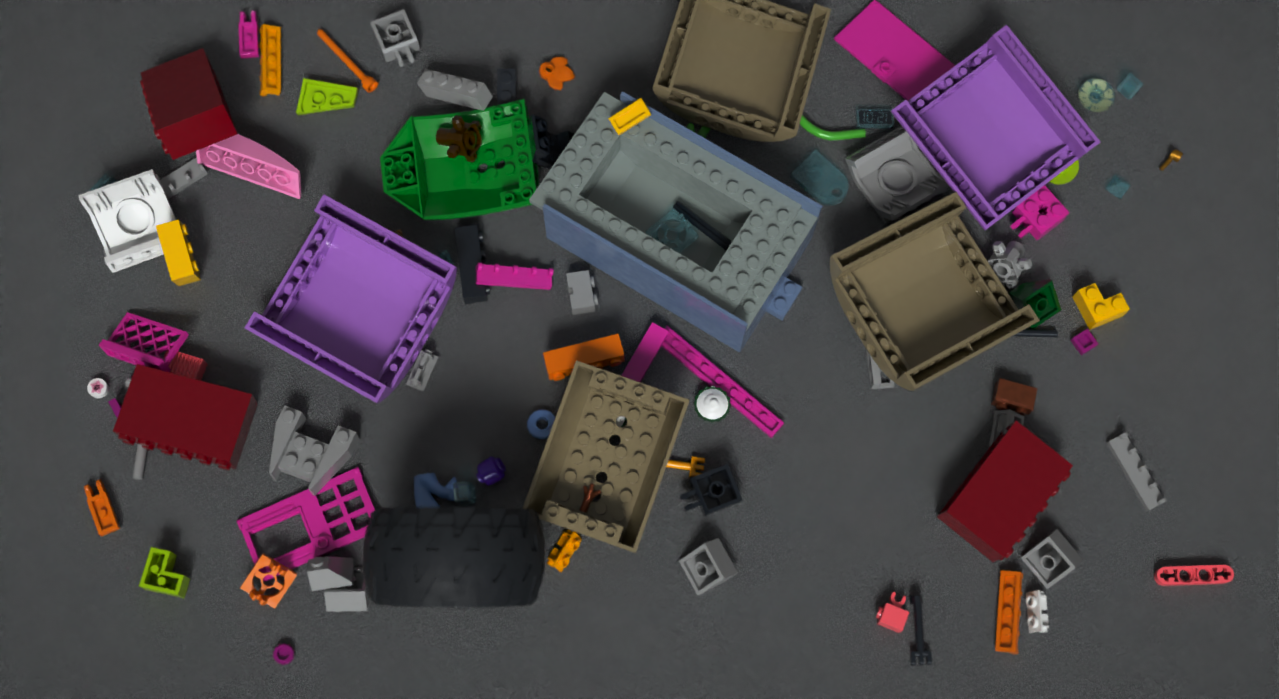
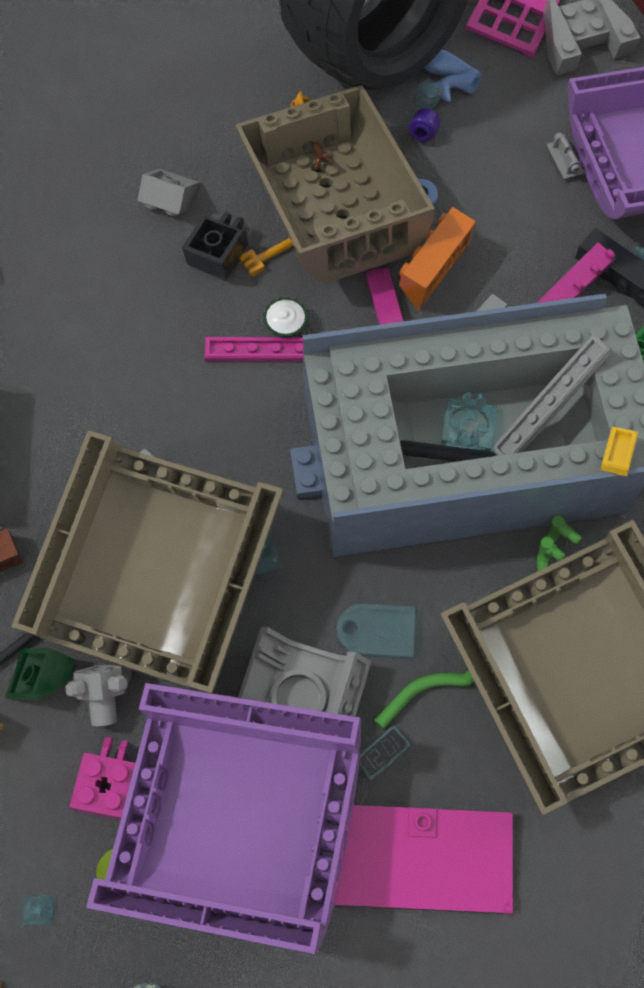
camera: 140 degrees right, 5 degrees down
(621, 192) = (553, 397): none -> light grey tile

